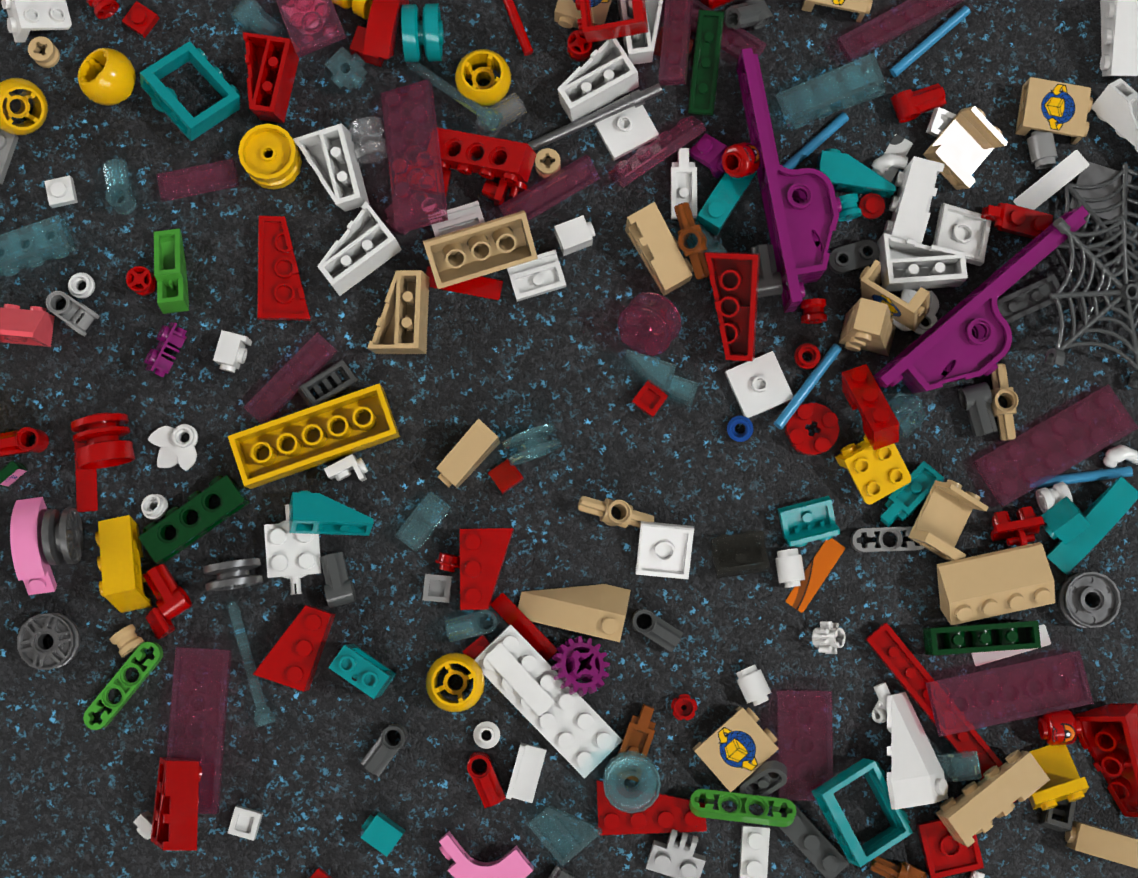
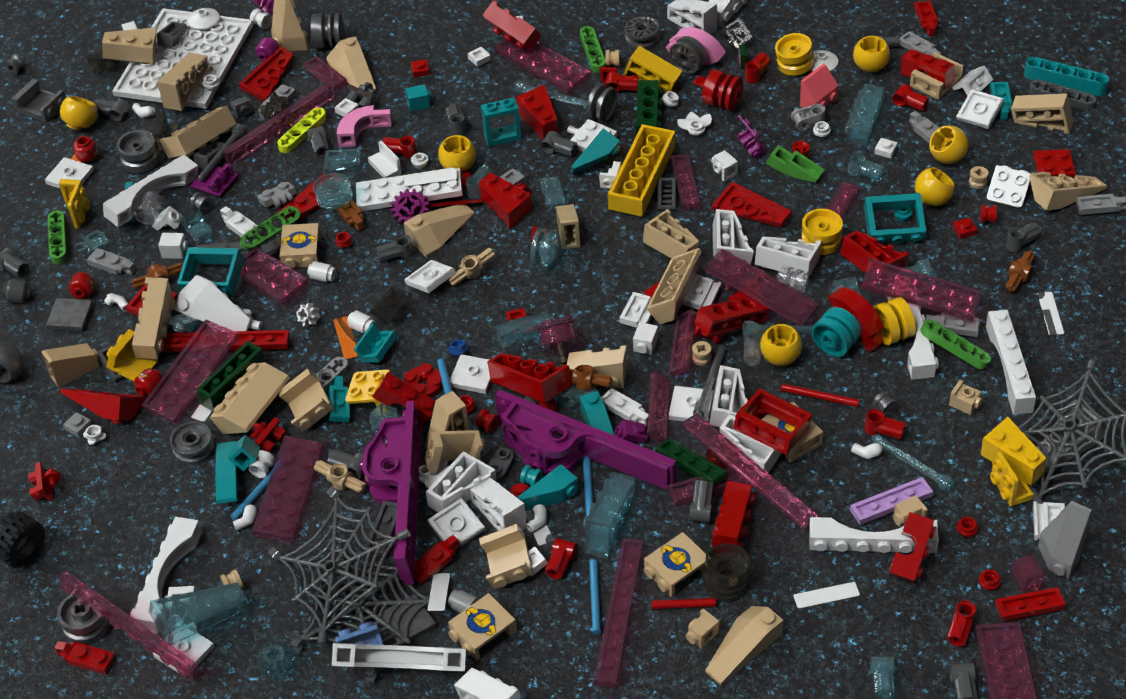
camera: 135 degrees right, 35 degrees down
(741, 160) = (612, 426): red head -> none

